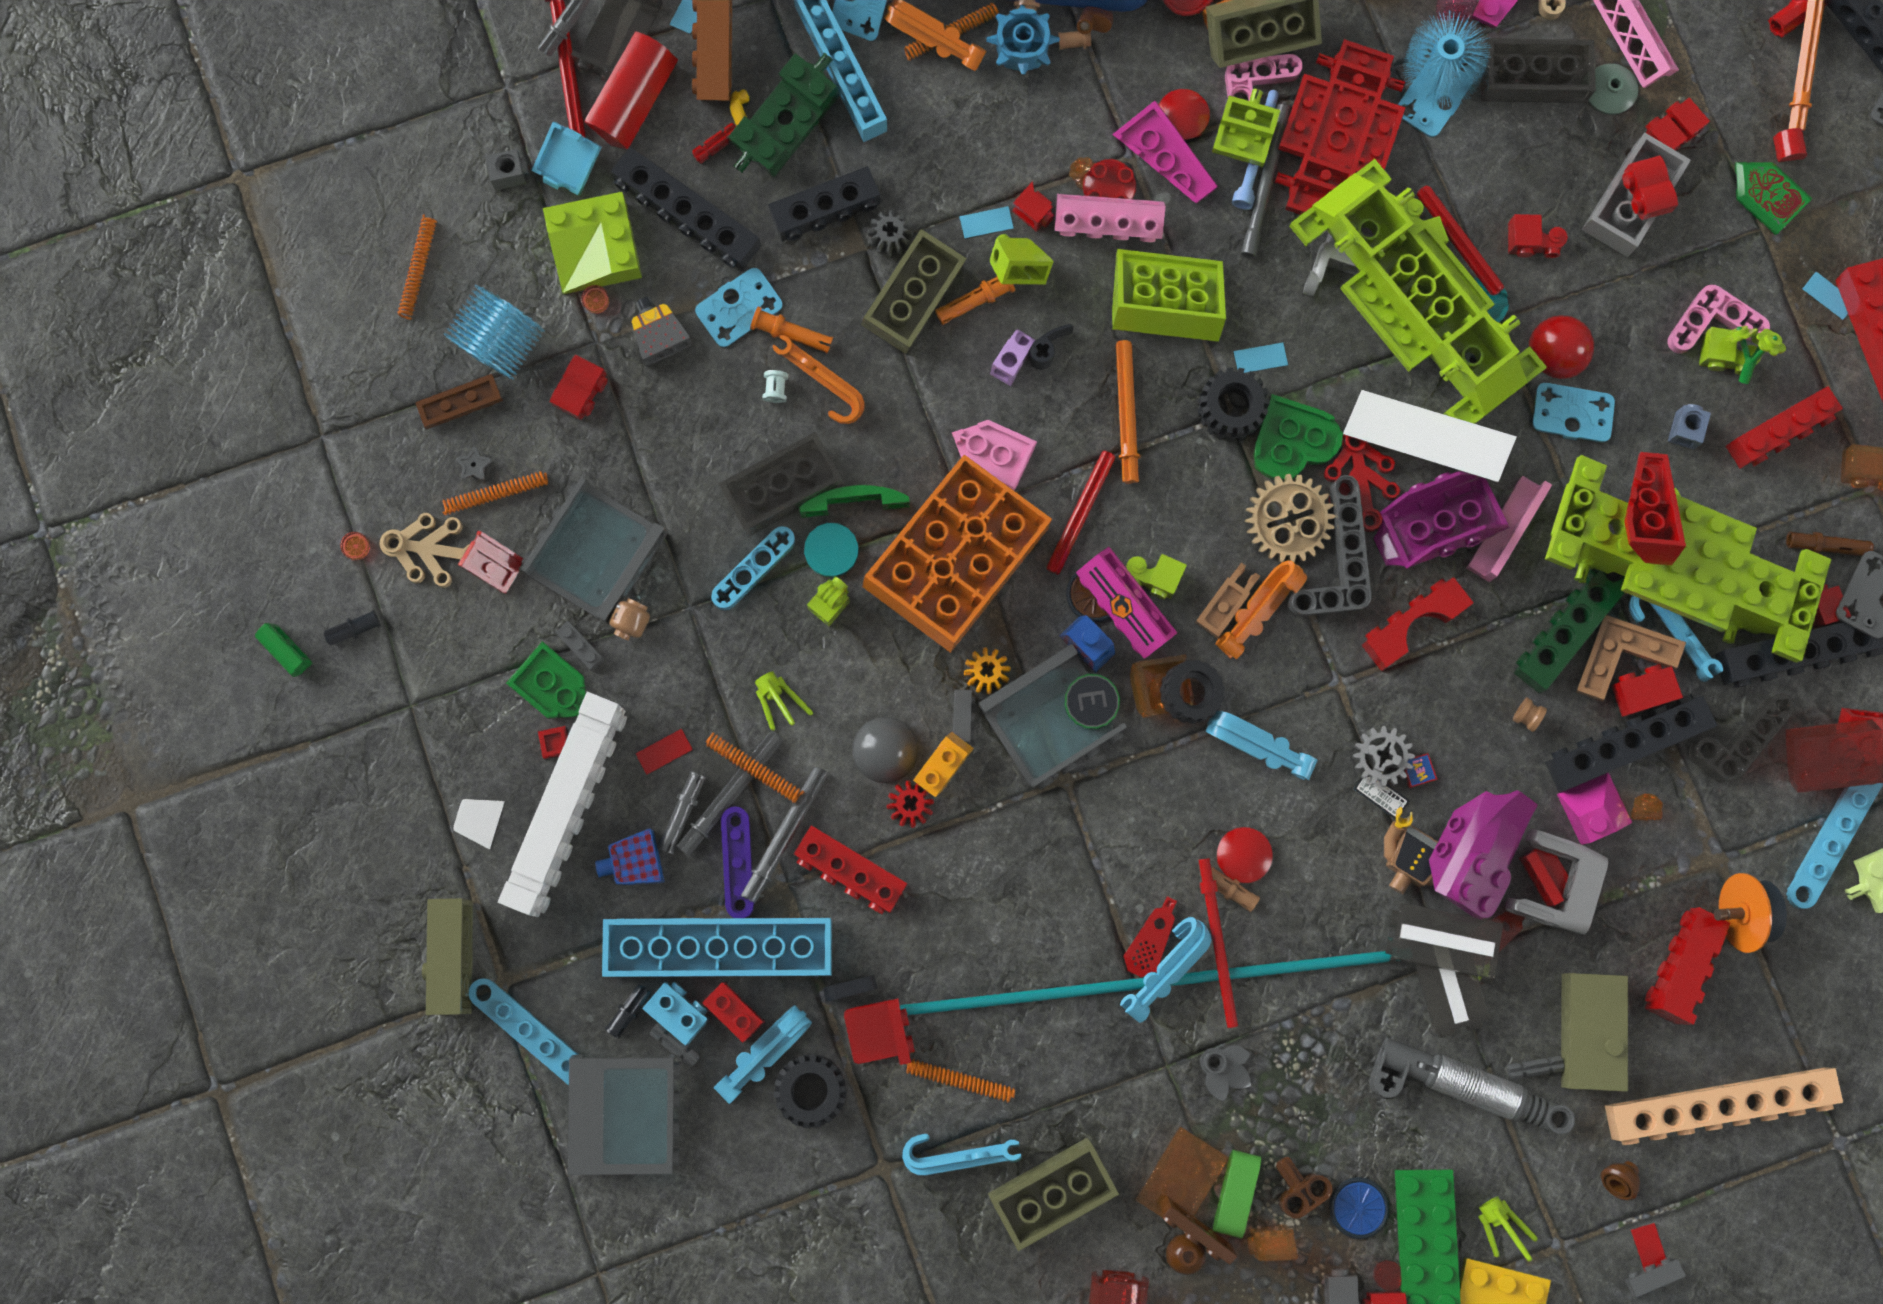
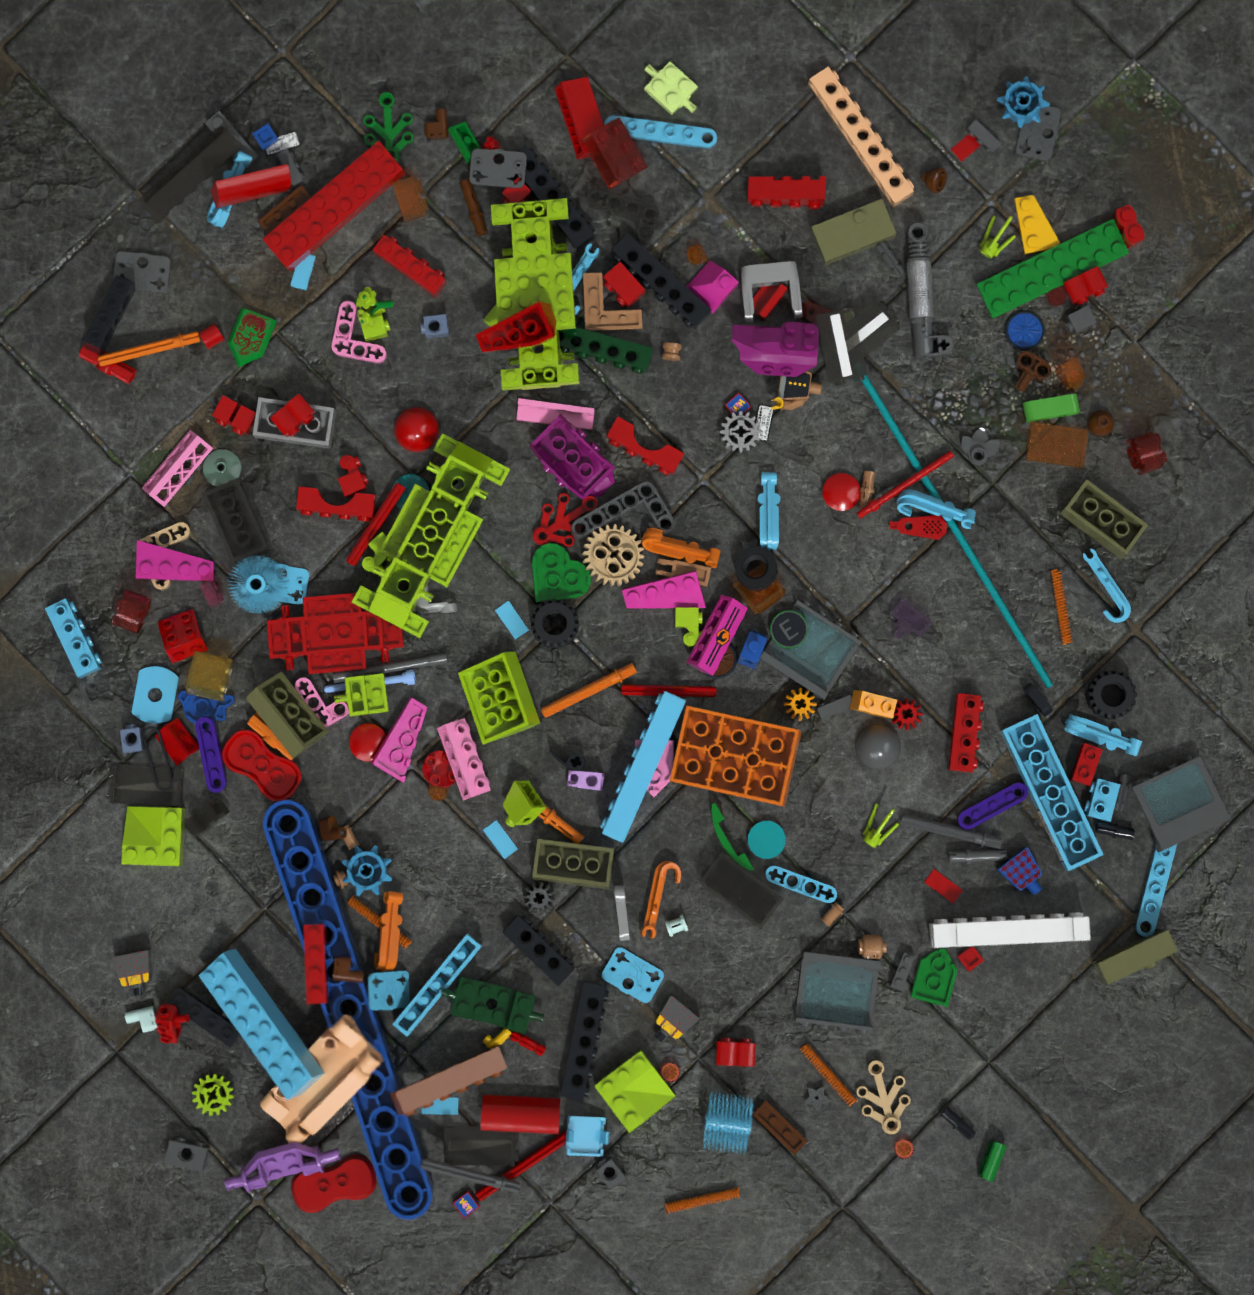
camera: 110 degrees left, 5 degrees up
(478, 820) = (1040, 983): white sticker -> none
(491, 562) = (876, 1052): plate -> none
(696, 591) = (832, 914): none -> medium nougat pin
(774, 785) = (930, 829): orange piece -> none
(778, 326) = (635, 943): orange pin -> none
(784, 835) = (962, 784): dark grey axle -> none
(829, 600) = (801, 824): lime brick -> none
(844, 328) = (621, 912): none -> light grey beam
(879, 1032) = (1056, 669): red bracket -> none
(998, 430) = (644, 765): none -> medium azure brick
(1033, 208) = (479, 811): red window -> none
(1033, 865) = (909, 620): none -> clear purple hinge
(1197, 1231) = (1085, 422): reddish brown plate -> none
(1209, 568) = (669, 592): none -> dark pink wing
(1430, 435) = (521, 489): white sticker -> none
(1522, 178) = (360, 506): none -> red arch
(1573, 404) = (453, 405): medium azure axle -> none
(1754, 912) = (736, 166): orange piece -> none

